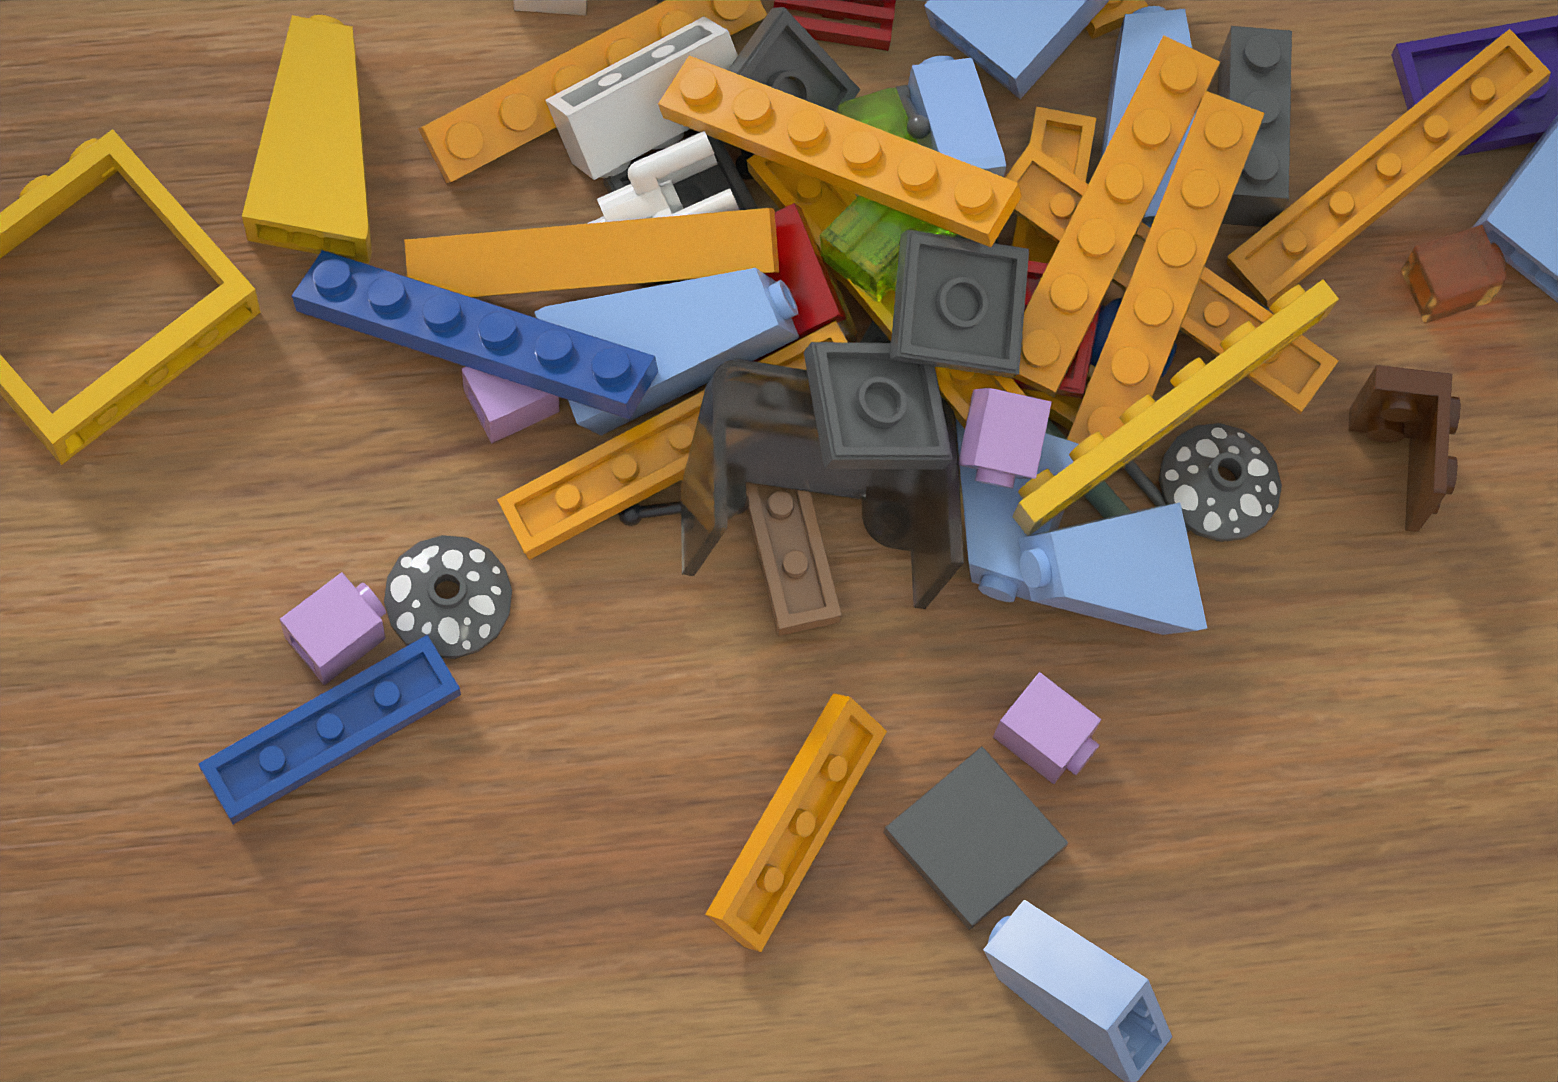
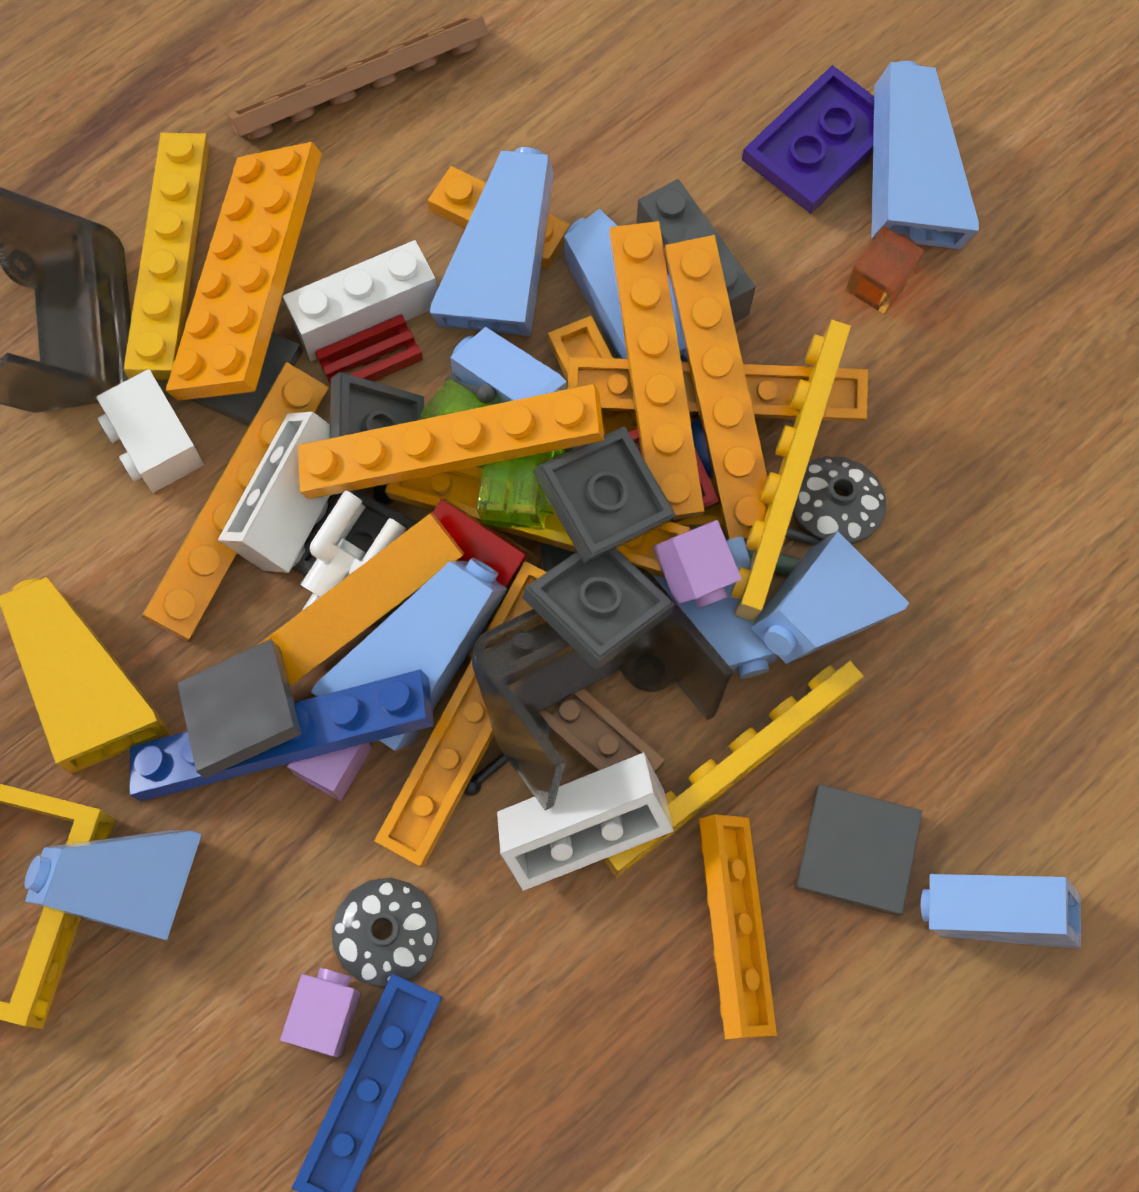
camera: 25 degrees left, 0 degrees up
(225, 368) = (117, 880): none -> light blue slope
(452, 278) = (238, 709): none -> dark grey tile
(715, 615) = (586, 824): none -> white brick
(877, 670) = (748, 753): none -> yellow plate
(1049, 730) = (855, 742): lavender brick -> none
(1388, 168) = (798, 229): light orange plate -> none
(1419, 407) = (949, 375): reddish brown bracket -> none

